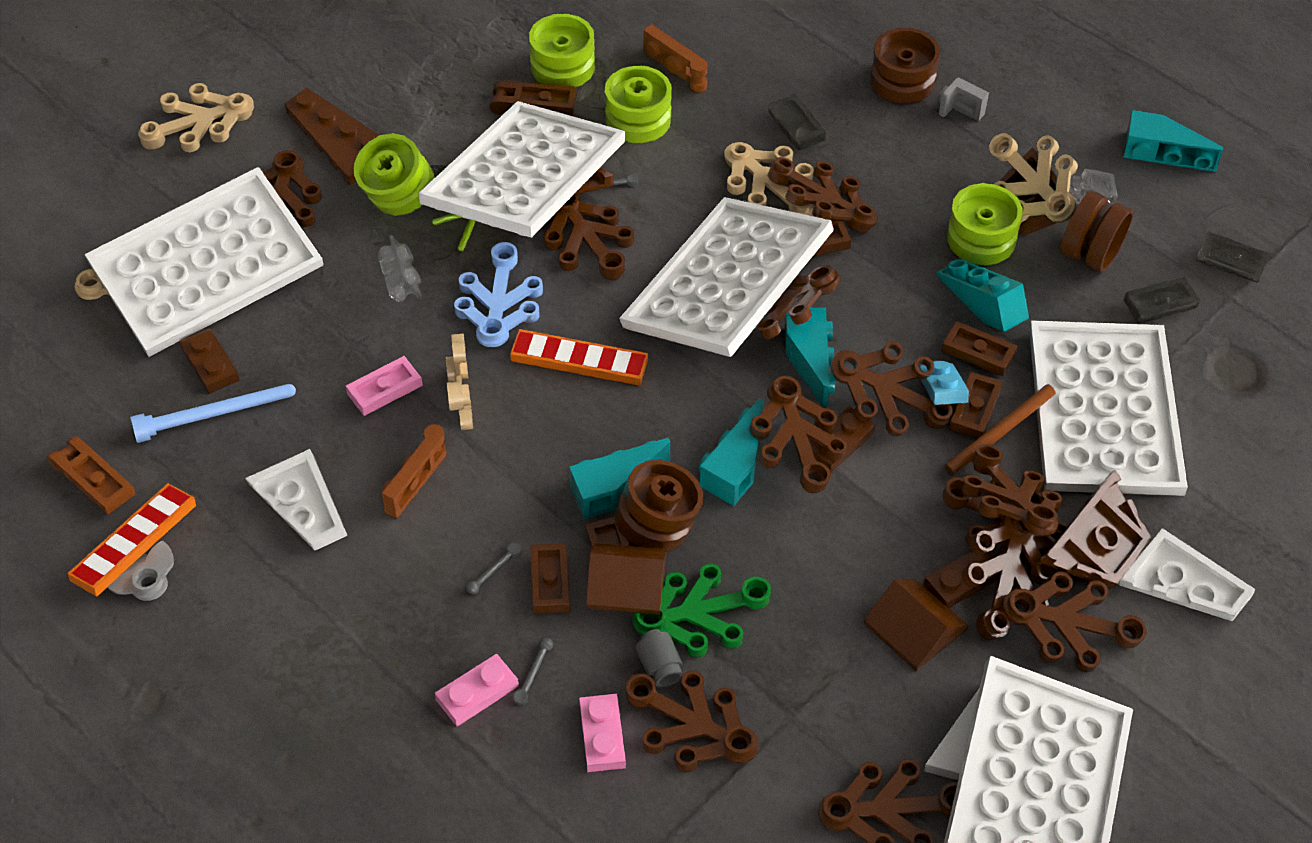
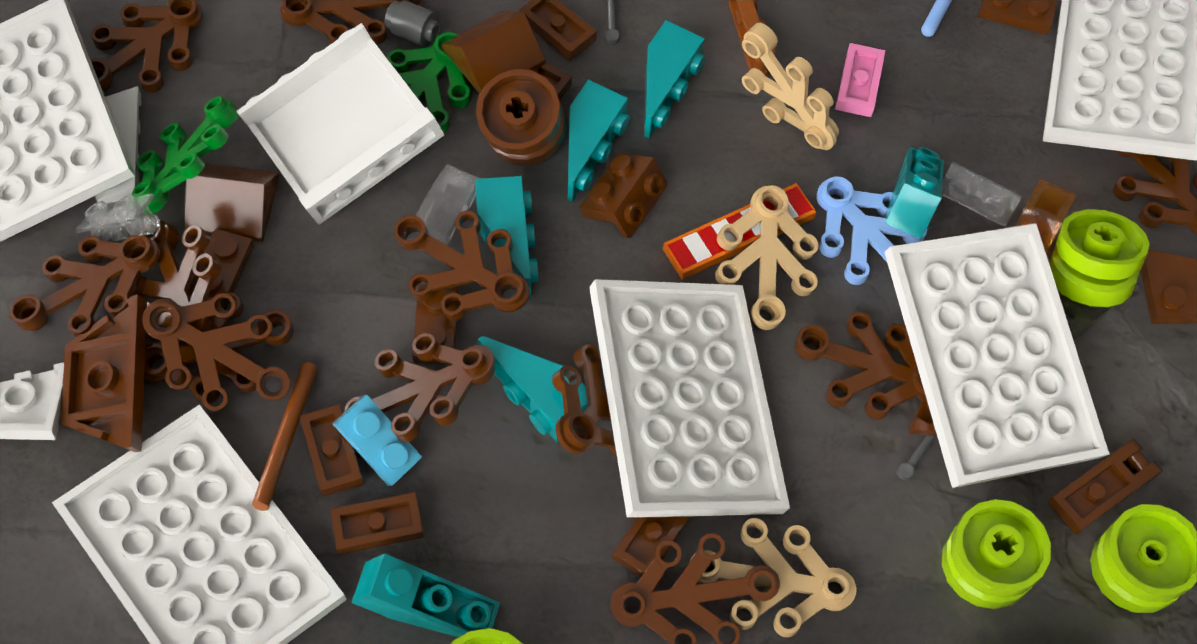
camera: 135 degrees right, 10 degrees up
(400, 217) = (1047, 209): none -> clear orange slope
(449, 283) = (916, 192): none -> teal slope
(510, 483) = (670, 62): none -> teal slope
(553, 341) = (770, 252): none -> tan plant
(631, 426) = (625, 192): none -> reddish brown bracket
(759, 504) = (448, 197): none -> clear slope
(793, 597) = (340, 123): none -> white panel
(940, 659) = (186, 158): none -> green plant
(1021, 637) = (120, 218): none -> clear hinge

